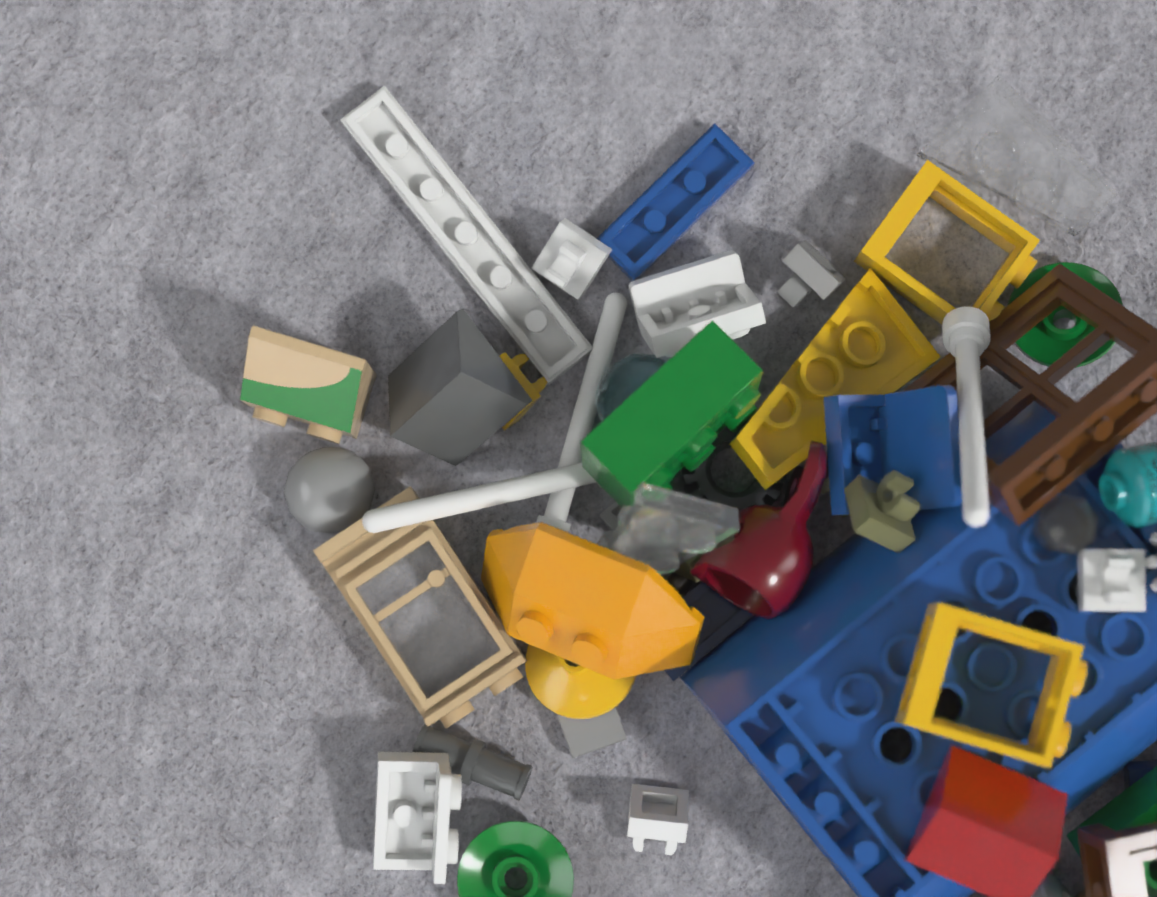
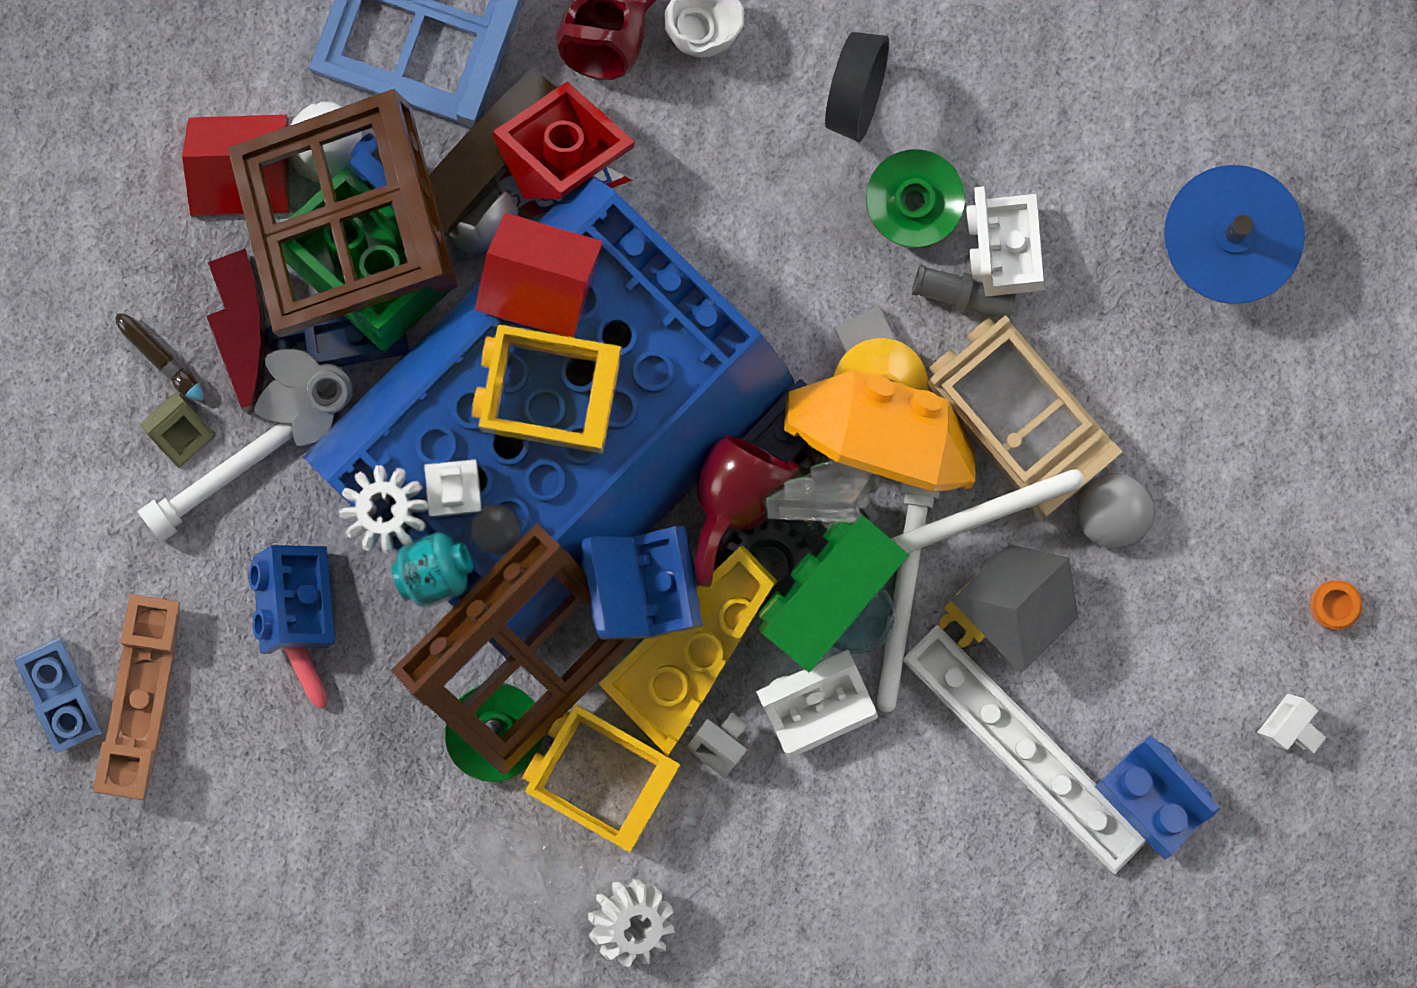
camera: 170 degrees right, 0 degrees up
(95, 356) = (1335, 605): none -> orange tile
(147, 792) = (1234, 234): none -> blue piece
(164, 225) = (1291, 725): none -> white tile
(305, 384) = (1147, 595): tan slope -> none
(325, 163) = (1157, 796): none -> blue bracket
(571, 258) = (930, 735): white tile -> none
(658, 815) = (801, 265): white tile -> none
(675, 202) = (845, 798): blue tile -> none
(883, 509) = (646, 530): olive tile -> none
(930, 87) = (647, 924): none -> white gear
(966, 338) = (583, 695): white piece -> none

